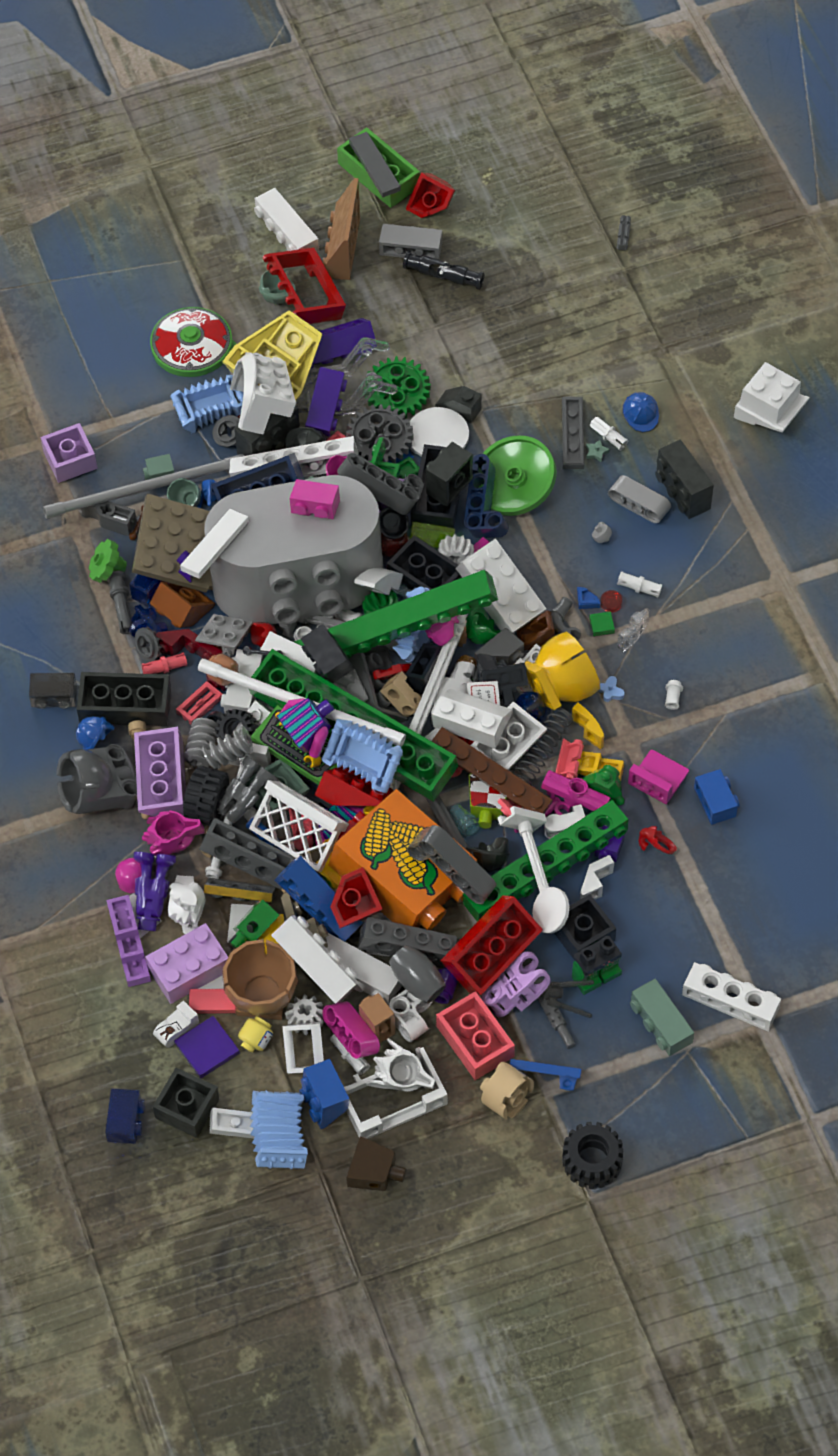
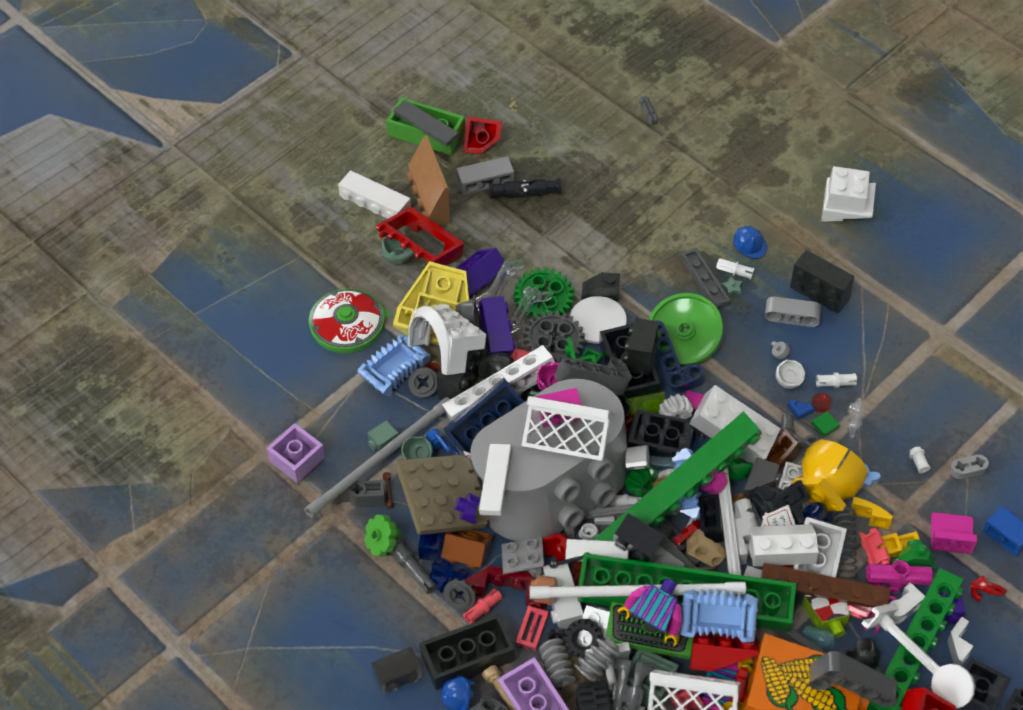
camera: 25 degrees left, 5 degrees down
(303, 381) = (469, 311): none -> dark grey piece
(312, 502) = (564, 410): none -> white fence
(594, 560) = (790, 374): none -> white hair
(720, 721) = (969, 466): none -> light grey beam

